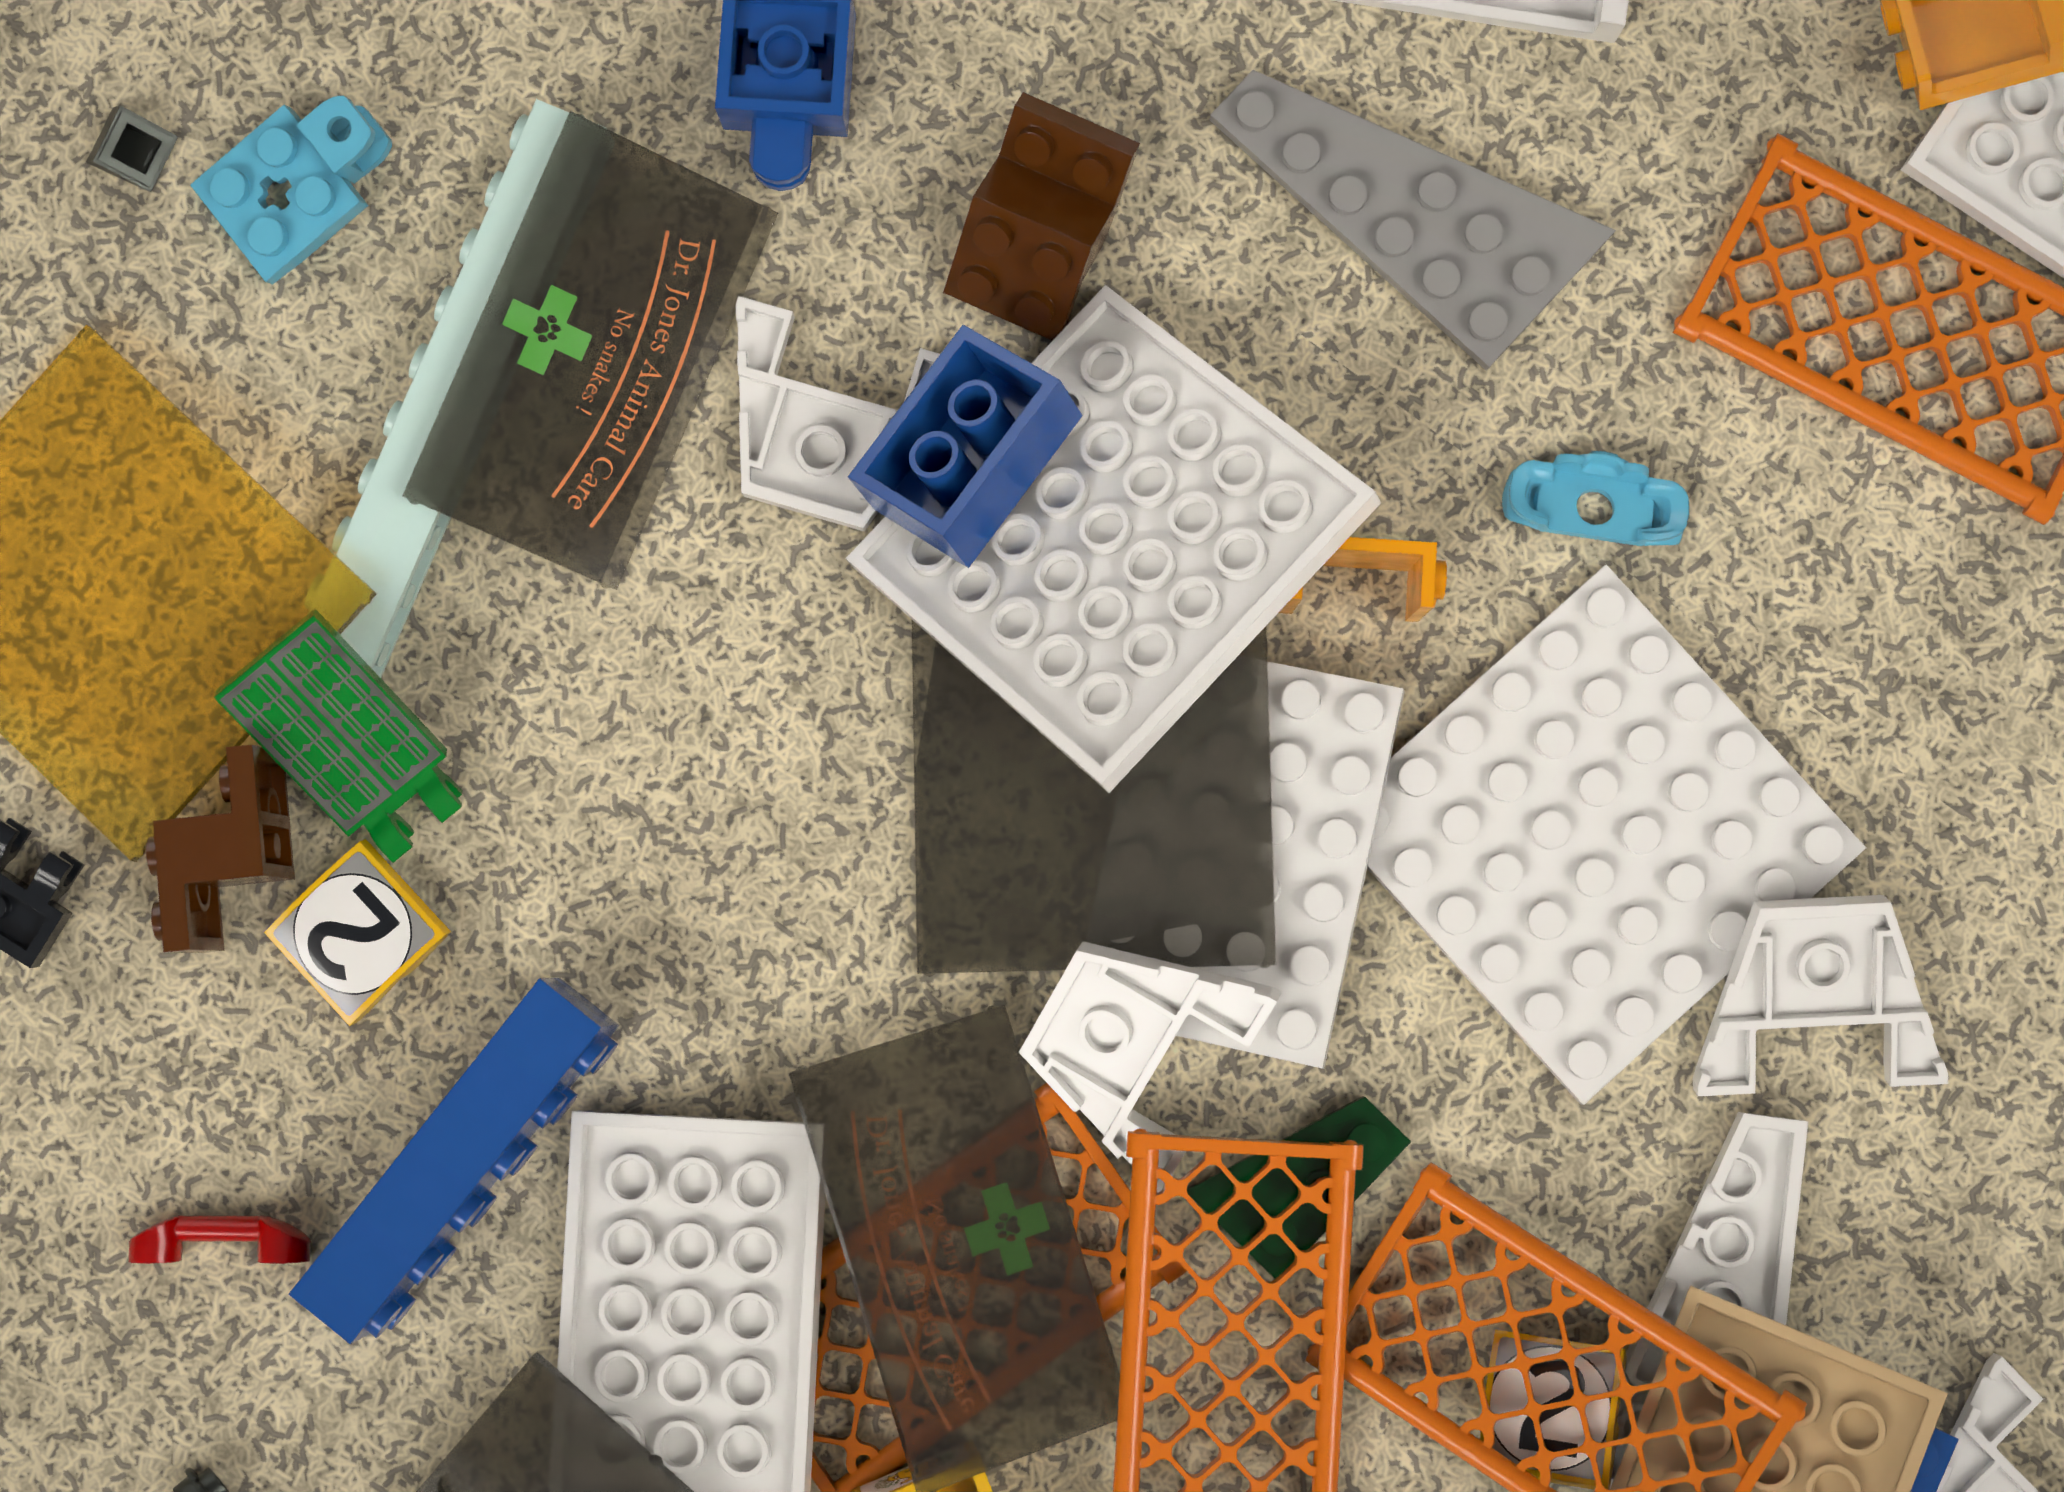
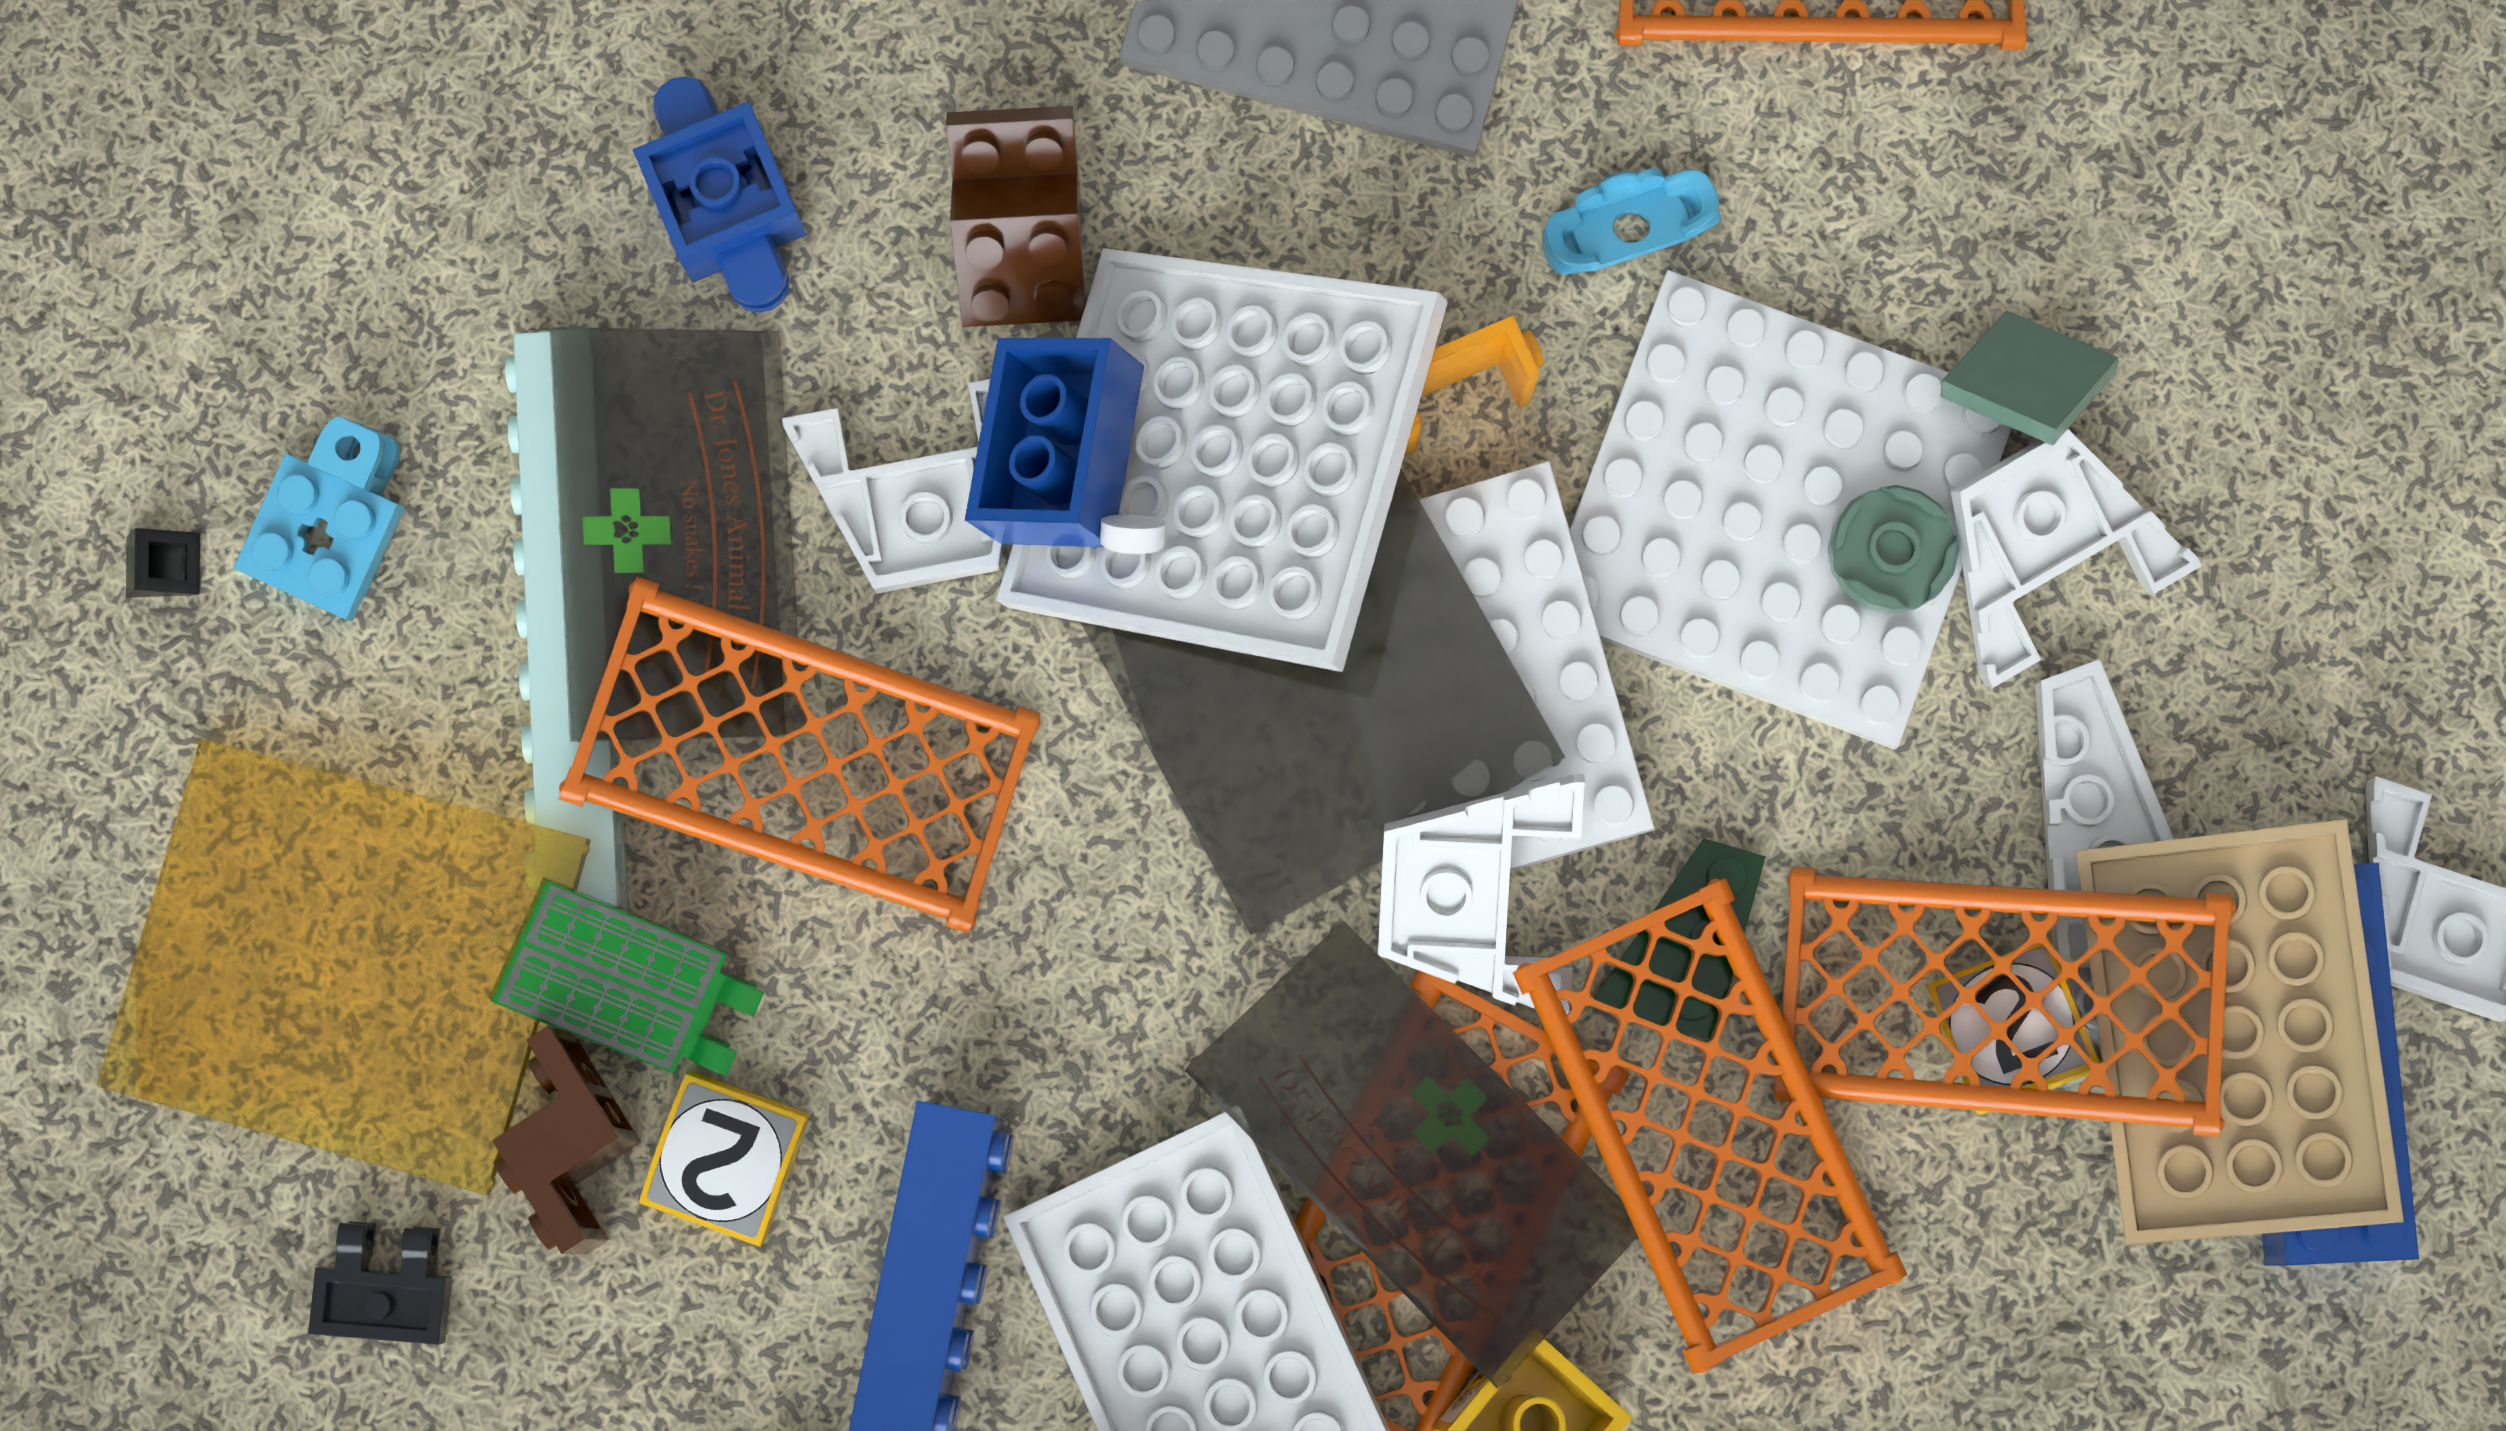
camera: 30 degrees left, 5 degrees down
(532, 403) = (752, 841): none -> orange door
(990, 567) = (1132, 533): none -> white tile
(1673, 927) = (1893, 549): none -> sand green tile
(1882, 834) = (2029, 377): none -> sand green tile

